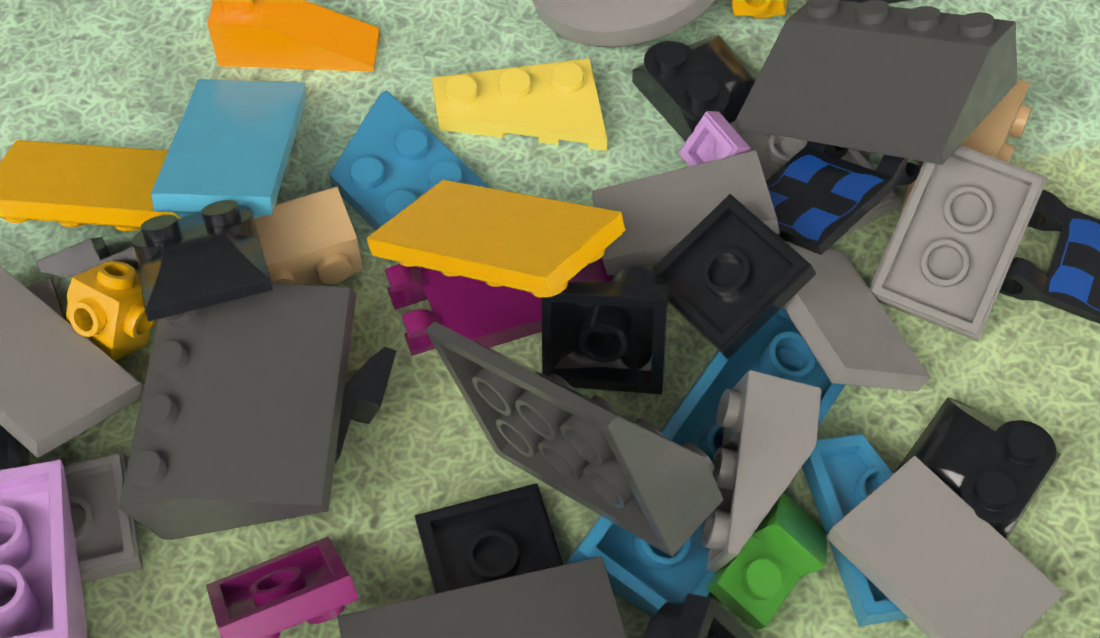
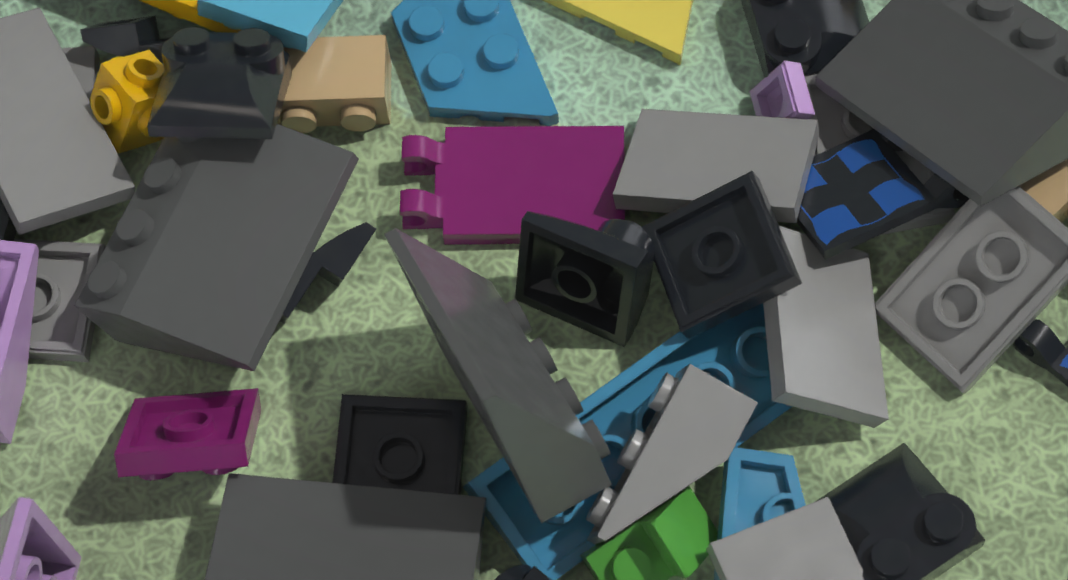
camera: 25 degrees right, 10 degrees up
(498, 236) = (508, 144): yellow tile -> none

